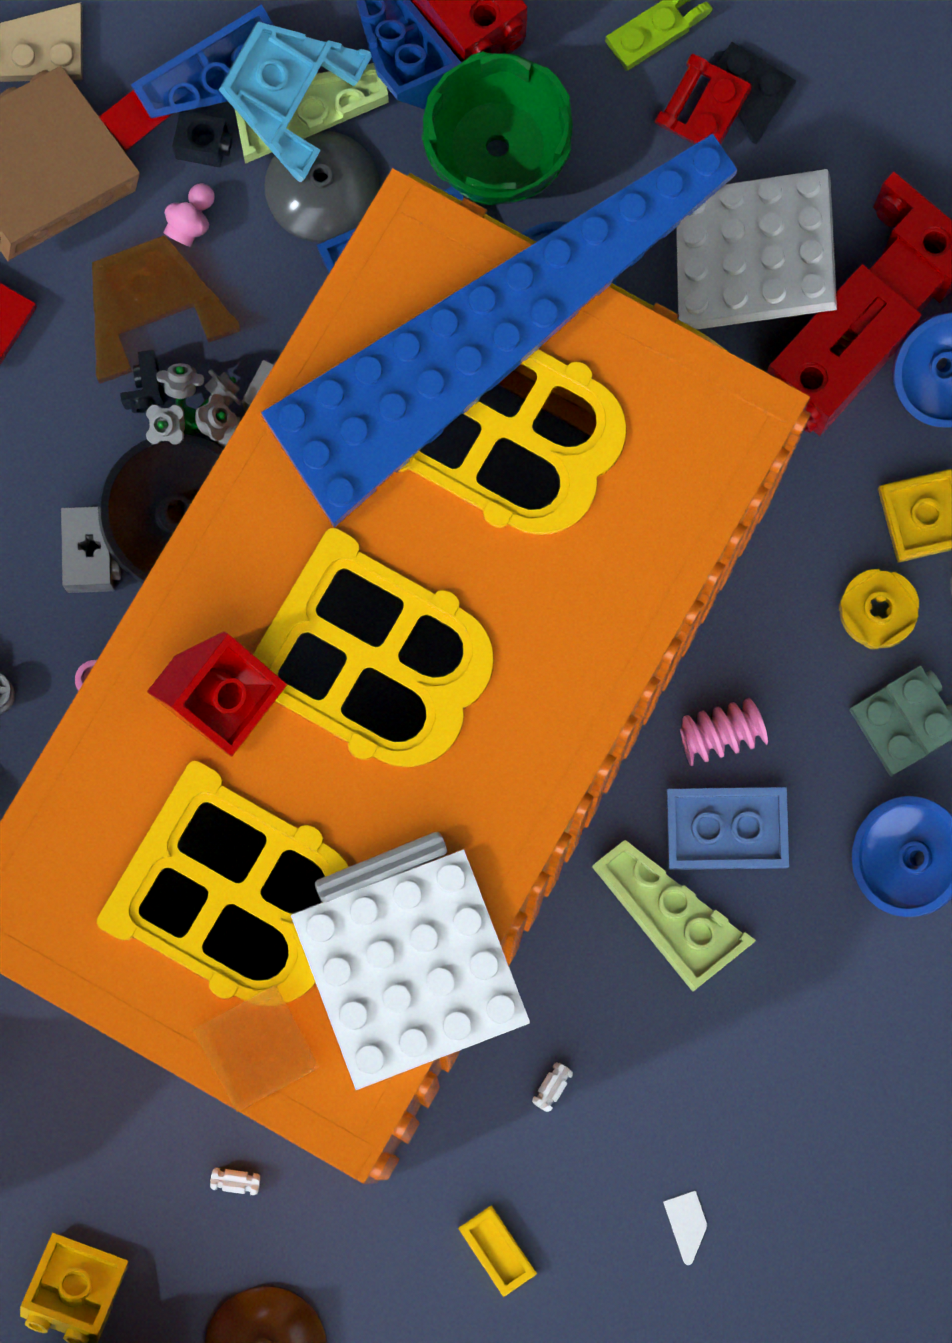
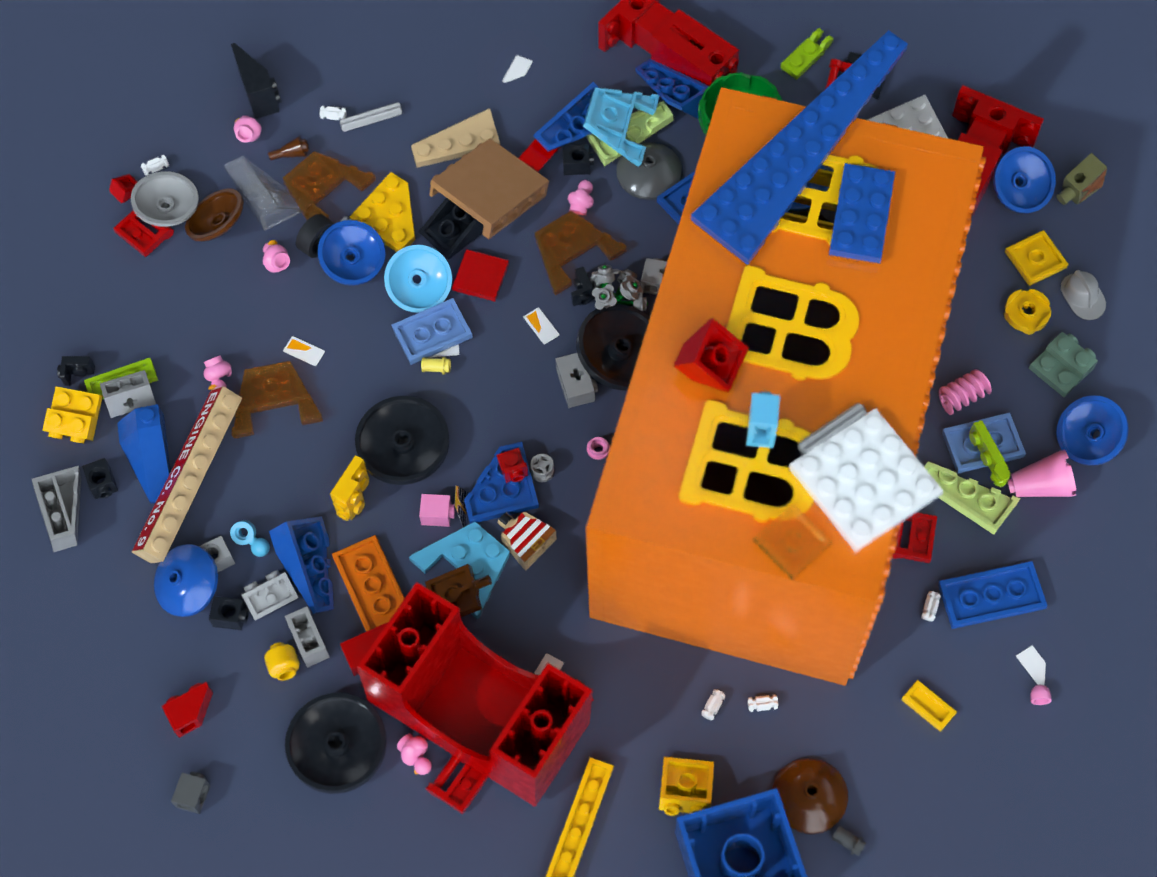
camera: 10 degrees left, 15 degrees down
(62, 432) = (541, 326): none -> white sticker
(156, 1164) = (713, 704): none -> white piece
(261, 832) = (763, 419): none -> medium azure brick
(555, 478) = (862, 213): none -> blue plate
(571, 967) = (920, 538): none -> red plate
(656, 1094) = (992, 595): none -> blue plate
(678, 1279) = (1040, 695): none -> bright pink hinge
(725, 859) = (990, 453): none -> lime hinge
(804, 919) = (1044, 478): none -> bright pink cone

